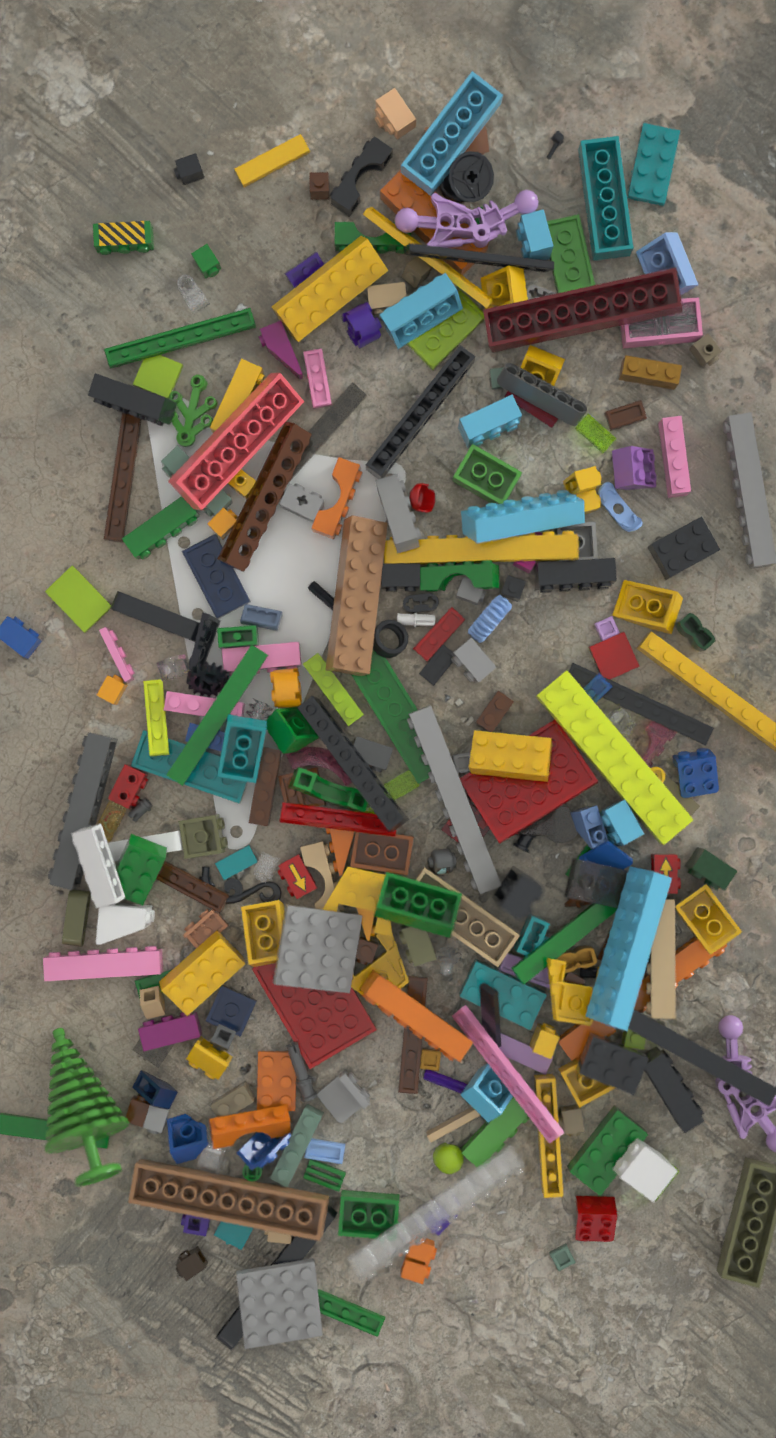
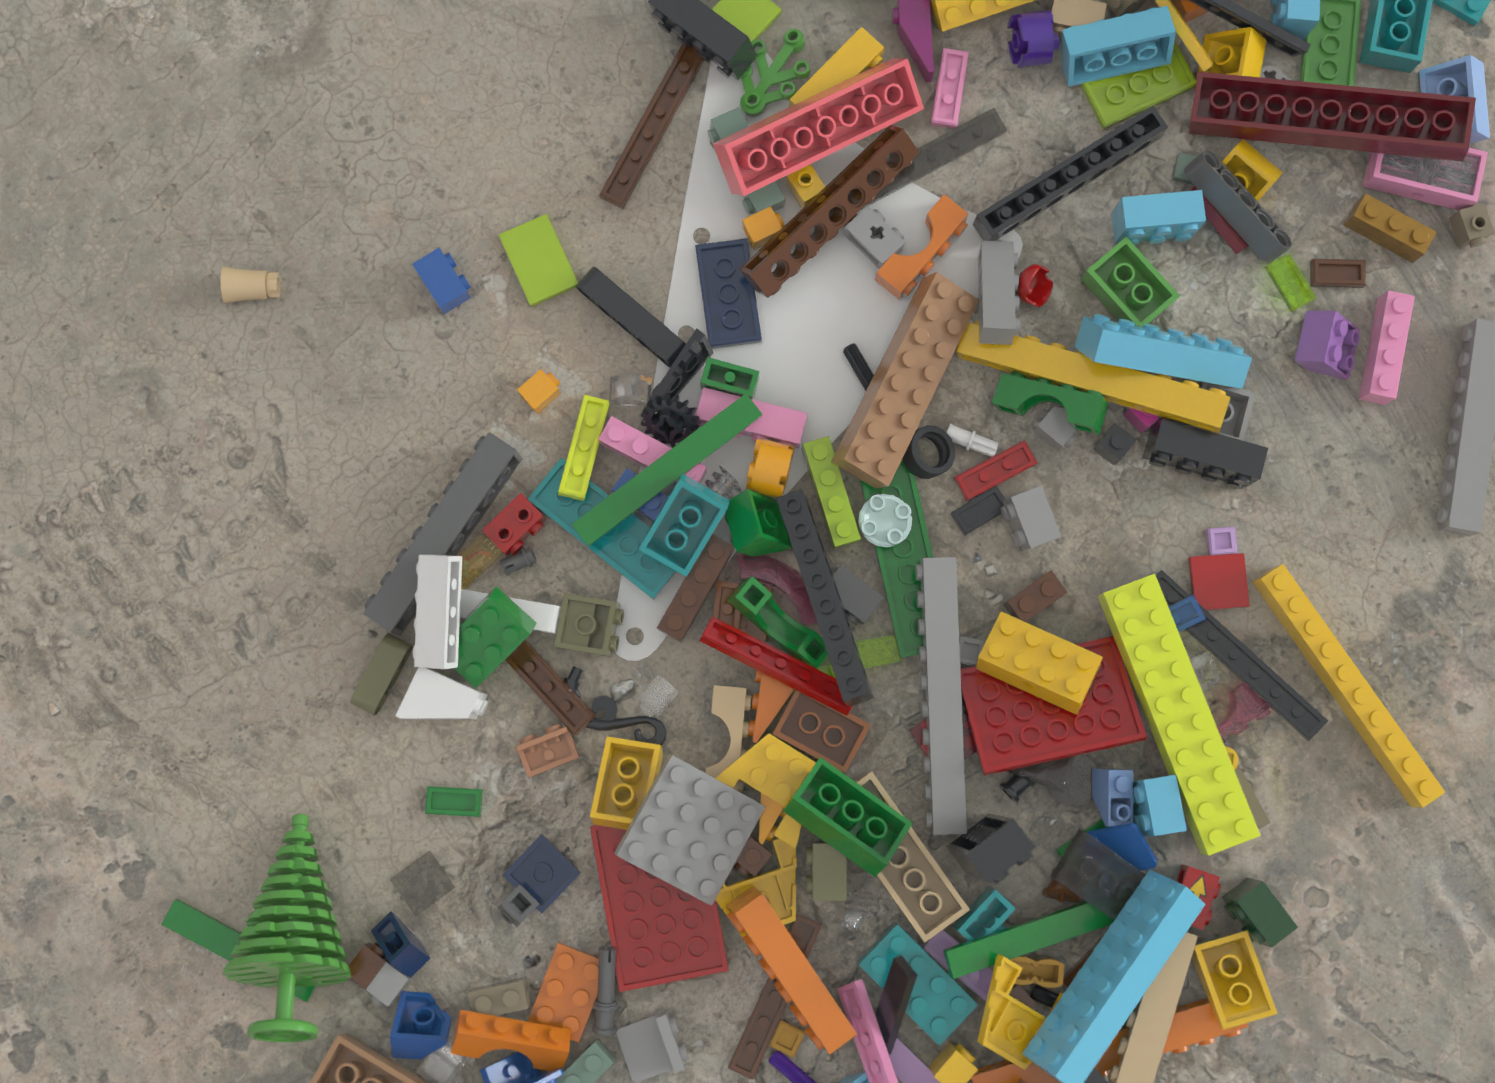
camera: 15 degrees right, 5 degrees down
(103, 964) = (394, 749): bright pink brick -> none
(117, 654) = (564, 348): bright pink plate -> none
(152, 1002) = (440, 823): tan brick -> none
(160, 527) = (679, 205): green brick -> none
(169, 1030) = (450, 870): magenta brick -> none
(202, 972) = (521, 807): yellow brick -> none
(208, 1059) = (488, 928): yellow slope -> none
(236, 862) = (620, 676): teal tile -> none
(261, 617) = (771, 366): sand blue plate -> none
(297, 876) = (695, 724): red brick -> none
(376, 695) = (885, 520): none -> light aqua dish
(401, 576) = (971, 377): black brick -> none
(420, 598) = (985, 415): black beam -> none
(442, 861) = (896, 773): dark grey head -> none
(489, 618) = (1072, 471): light blue gear -> none
(583, 485) = (1257, 338): yellow brick -> none
(610, 497) = (1281, 371): light blue piece -> none
(648, 606) = (1288, 530): yellow slope -> none
(683, 548) = (1360, 470): black brick -> none
(692, 628) = (1342, 591): dark green brick -> none
(696, 772) = (1281, 775): blue bracket -> none

